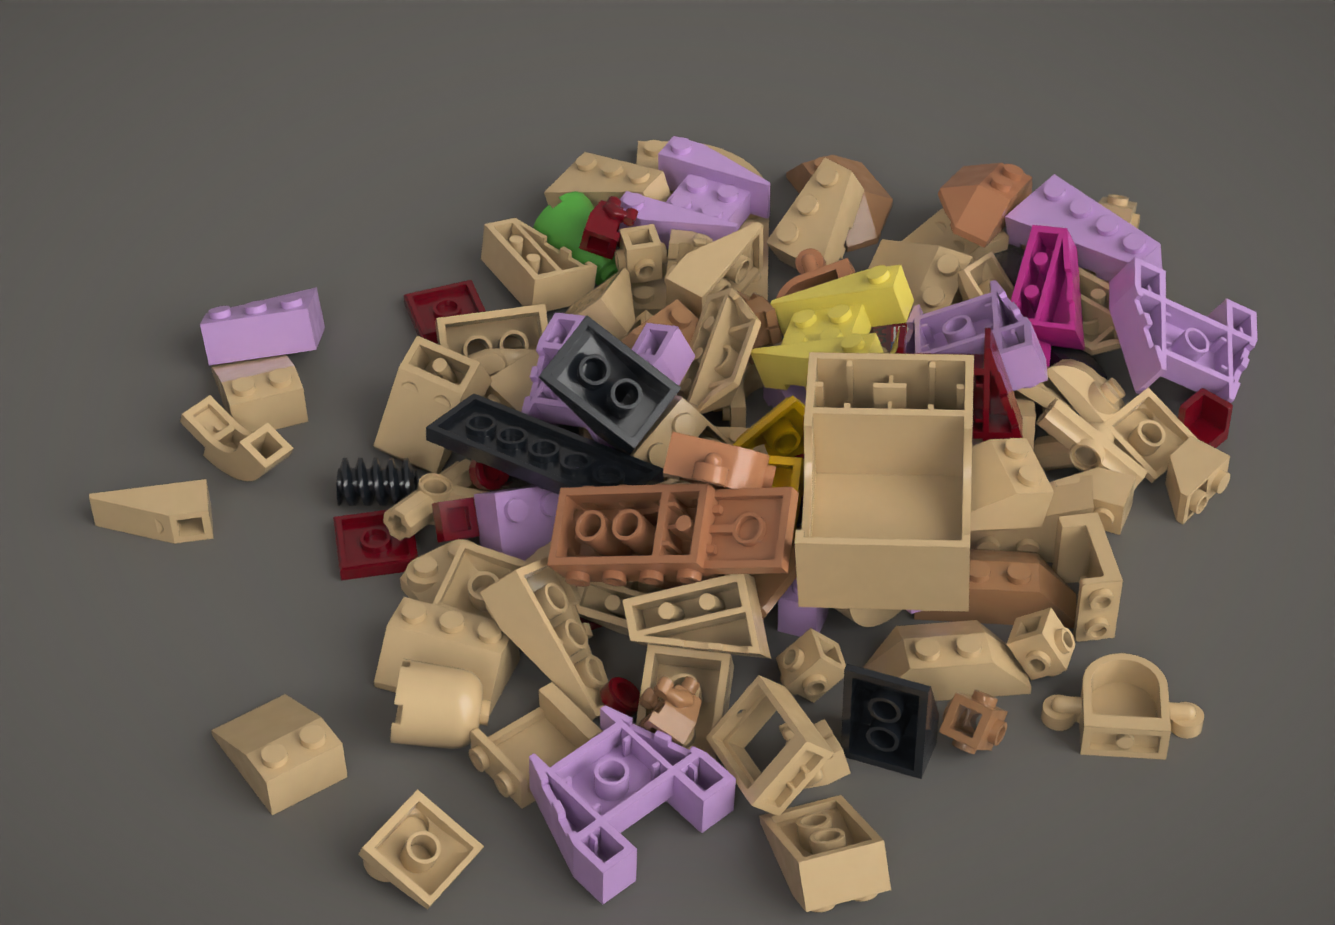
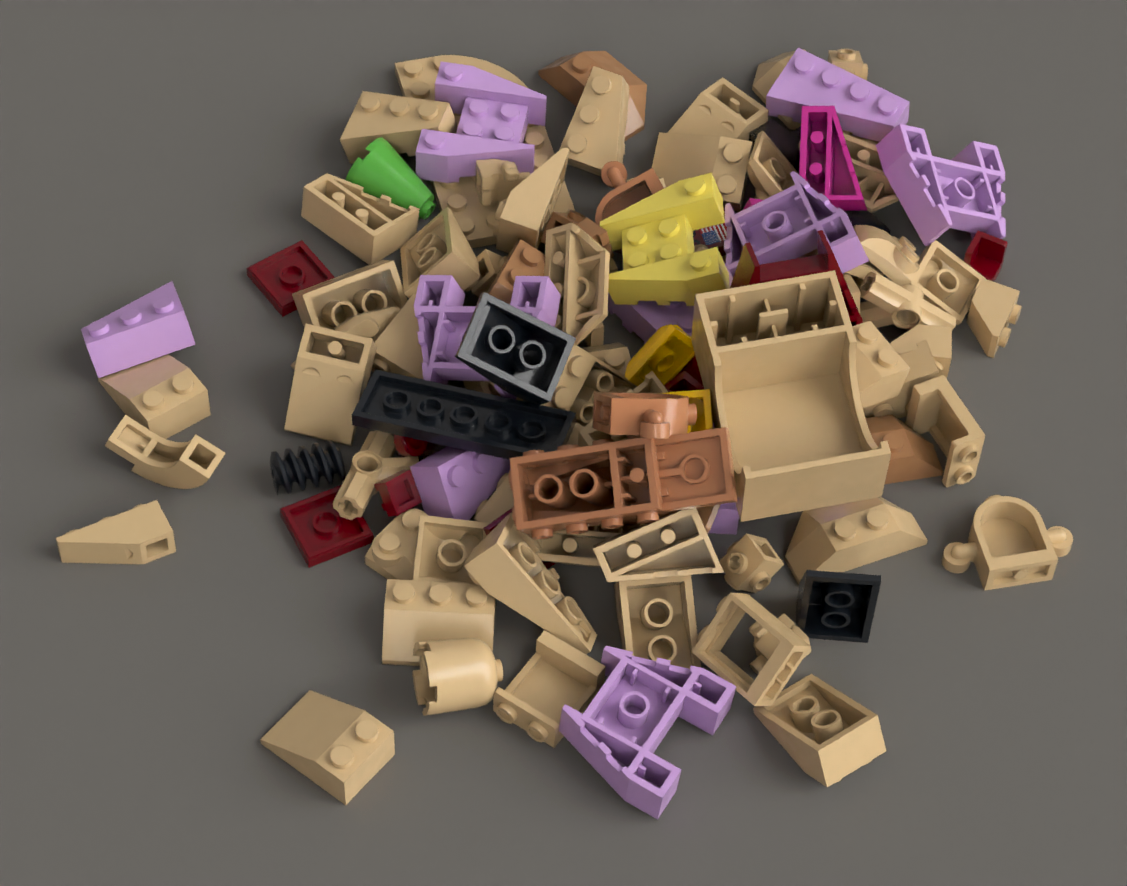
camera: 20 degrees left, 10 degrees up
(419, 850) = (492, 810): tan slope -> none
(602, 227) = (418, 175): dark red piece -> none
(621, 696) = (601, 628): dark red tile -> none
(641, 253) = (456, 189): tan brick -> none
(675, 712) = (660, 637): medium nougat piece -> none
(960, 721) = (898, 598): medium nougat brick -> none
(981, 197) = (739, 80): nougat wedge -> none
(1041, 644) = (928, 501): tan brick -> none

